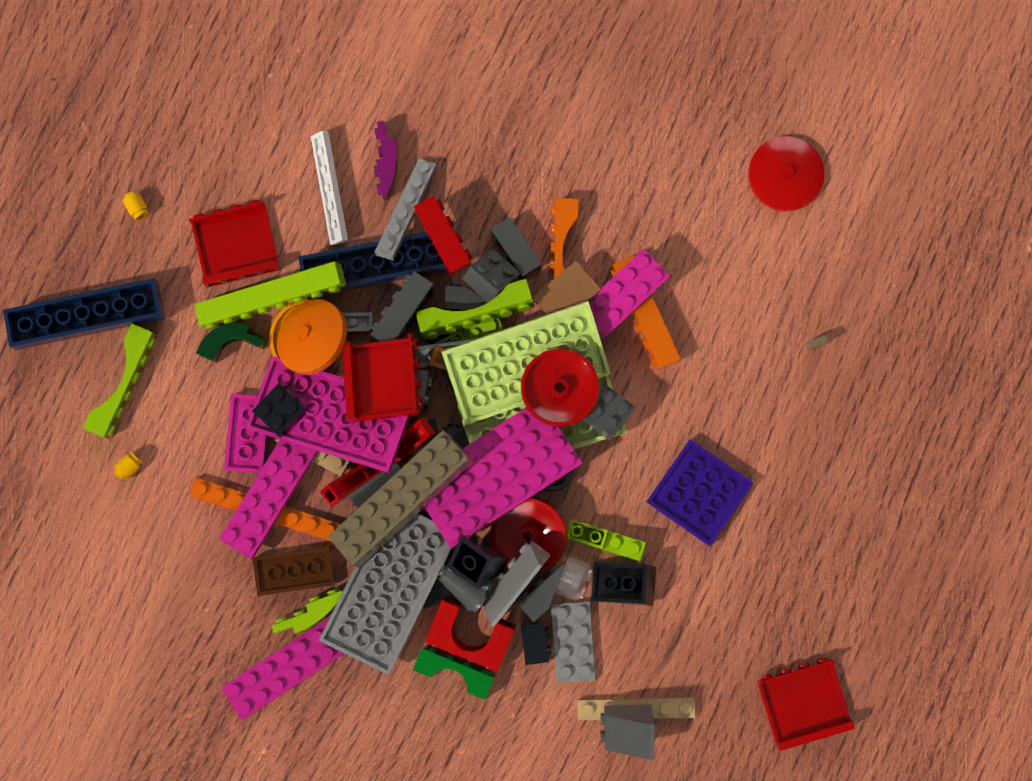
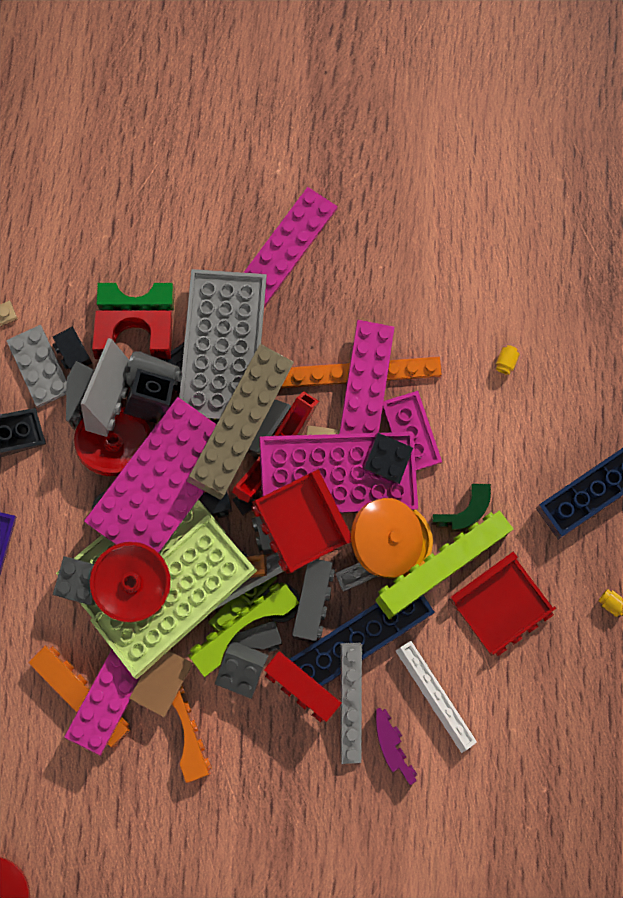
camera: 160 degrees right, 5 degrees down
(137, 345) = (550, 472): lime arch -> none
(293, 571) = (315, 328): reddish brown plate -> none
(317, 610) = (280, 302): lime slope -> none
(515, 248) = (230, 709): dark grey brick -> none
(573, 579) = (54, 417): clear brick -> none
(606, 540) = (39, 466): lime slope -> none

